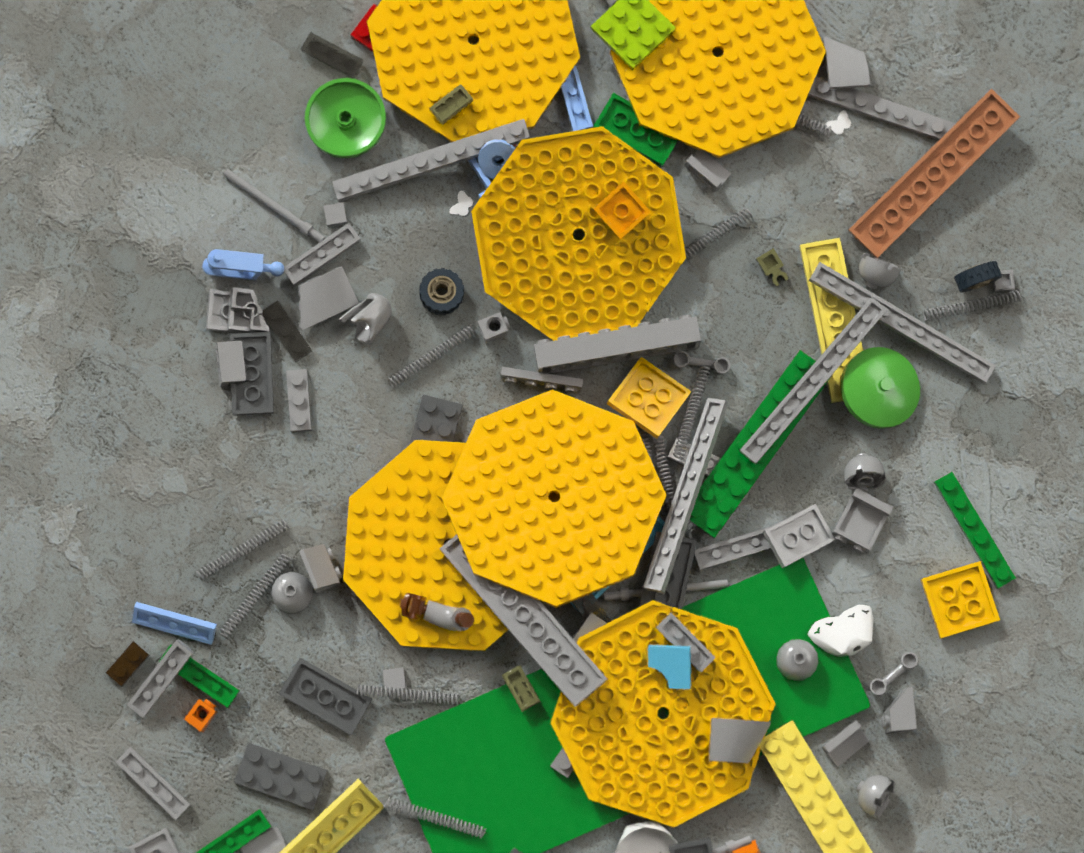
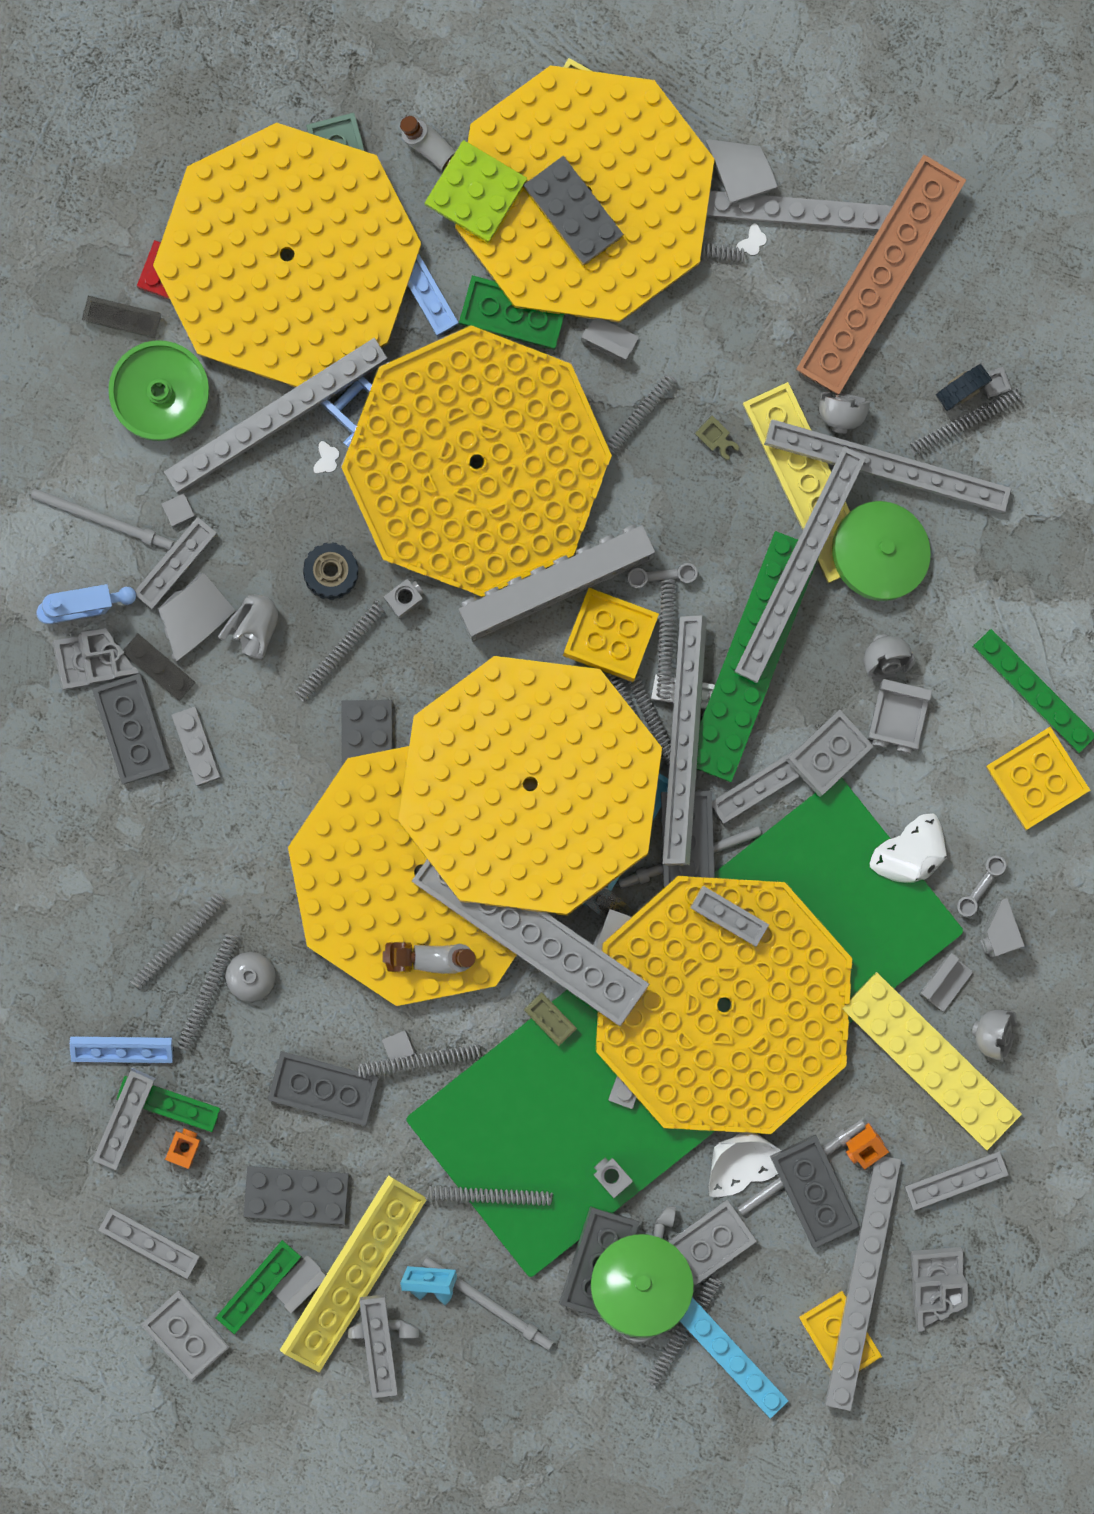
camera: 15 degrees left, 5 degrees up
(127, 664) = (79, 1111): dark brown plate -> none
(230, 362) = (102, 722): light grey panel -> none
(320, 567) = (276, 939): light grey slope -> none
(451, 104) = (282, 342): olive plate -> none
(486, 155) = (344, 387): light blue tile -> none
(537, 837) = (613, 1188): none -> light grey brick
(550, 381) = (466, 648): light grey plate -> none
(621, 210) = (521, 420): light orange plate -> none
(673, 663) = (720, 943): medium azure tile -> none
(705, 62) = (573, 210): none -> dark grey plate
(735, 739) = (816, 1013): light grey slope -> none
(797, 660) = (864, 900): light grey cylinder -> none

